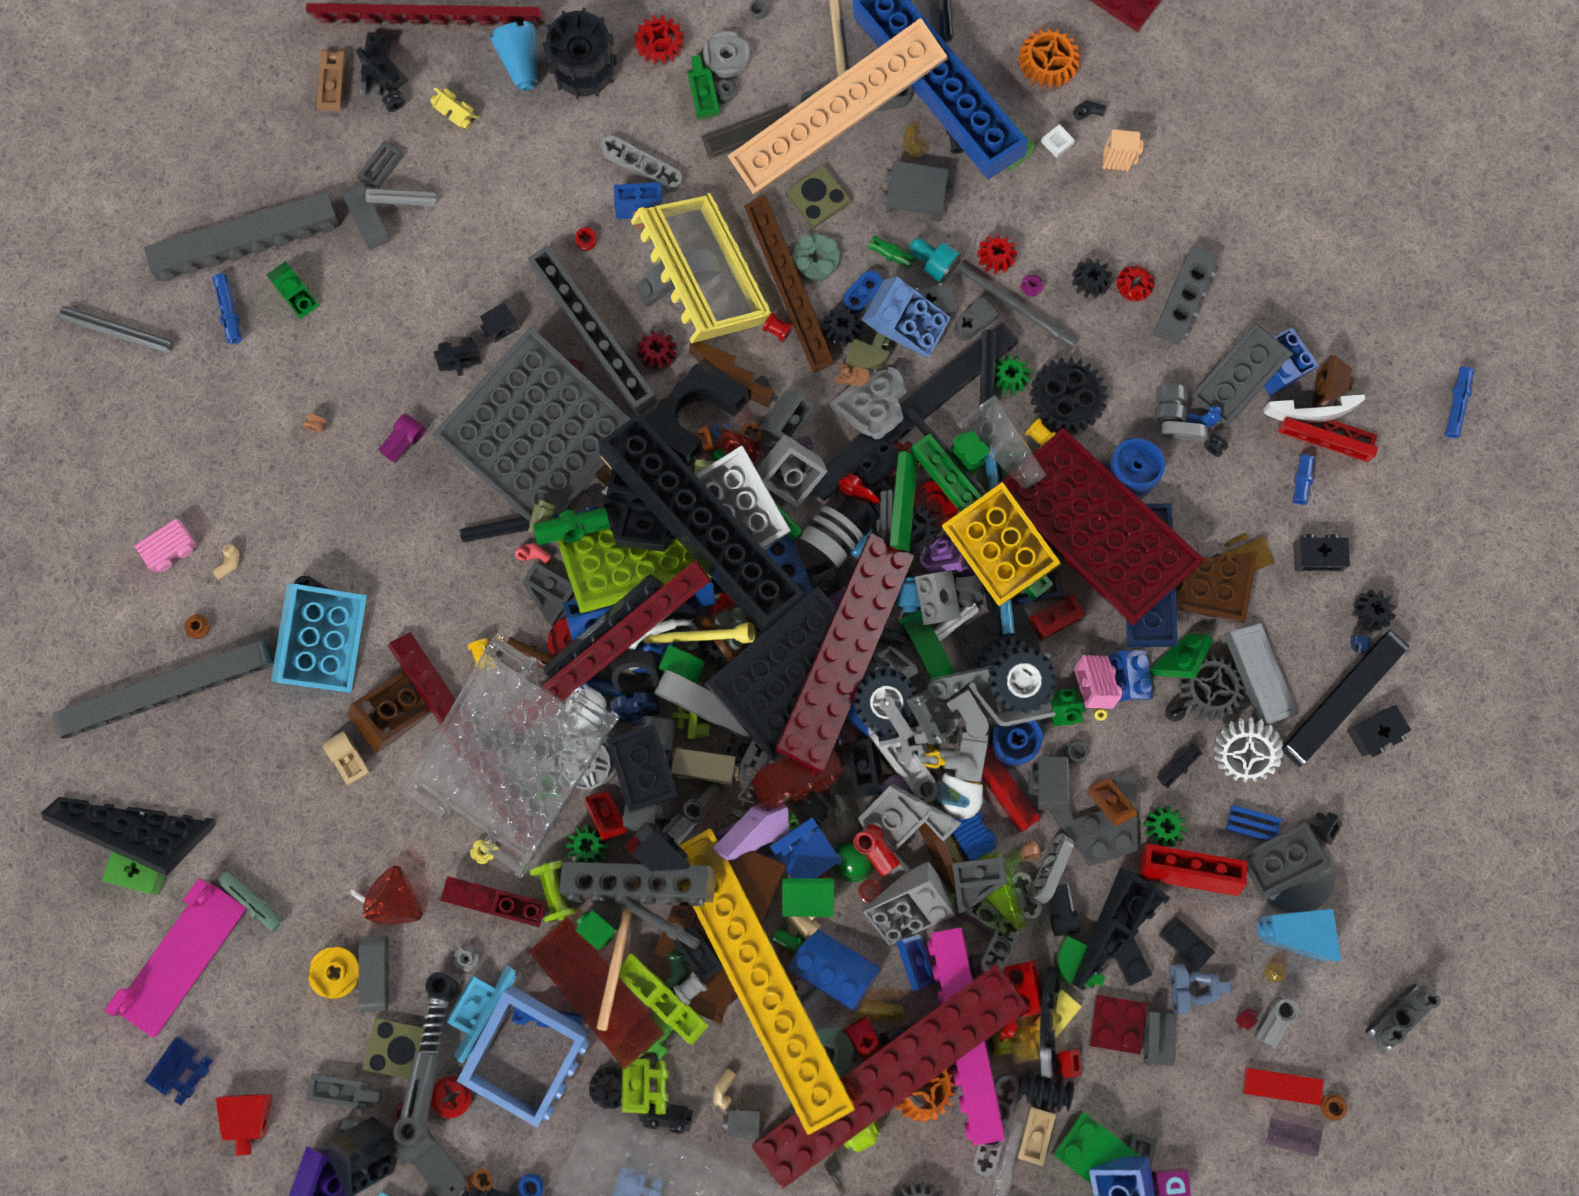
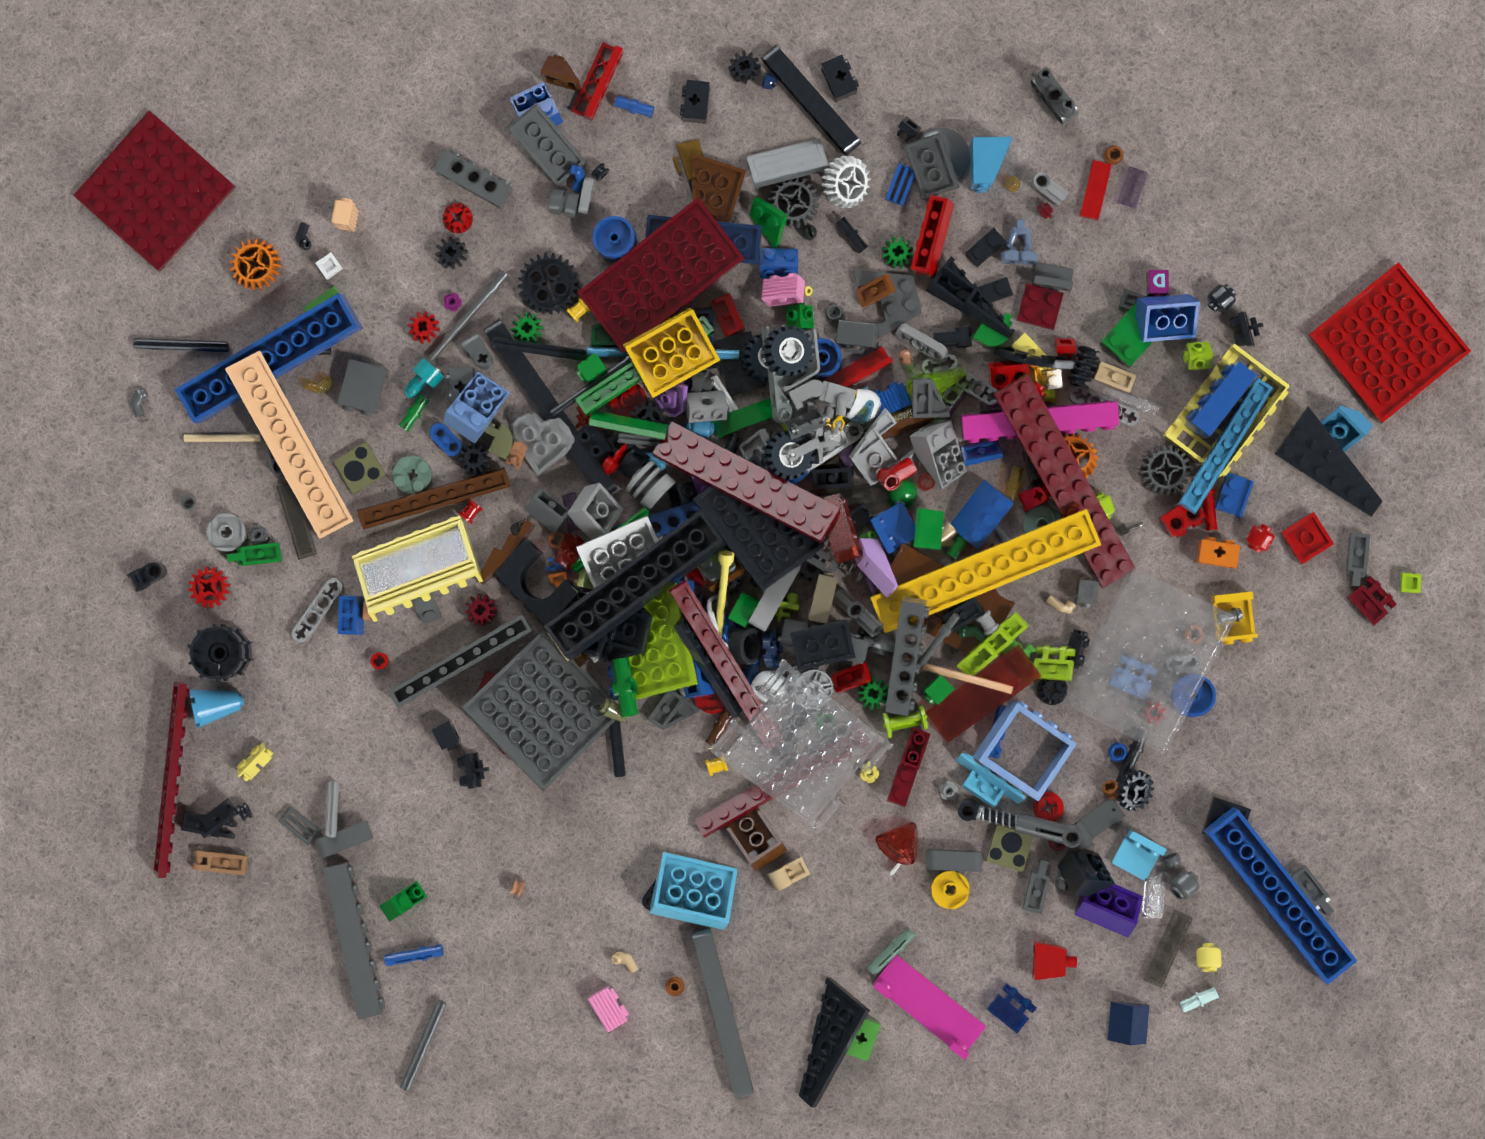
camera: 80 degrees left, 10 degrees up
(406, 432) = (533, 816): magenta piece -> none
(533, 551) = (637, 721): coral arm -> none
(654, 852) = (886, 639): black slope -> none
(1004, 440) = (585, 341): clear wing -> none
(1341, 407) = (578, 112): white slope -> none

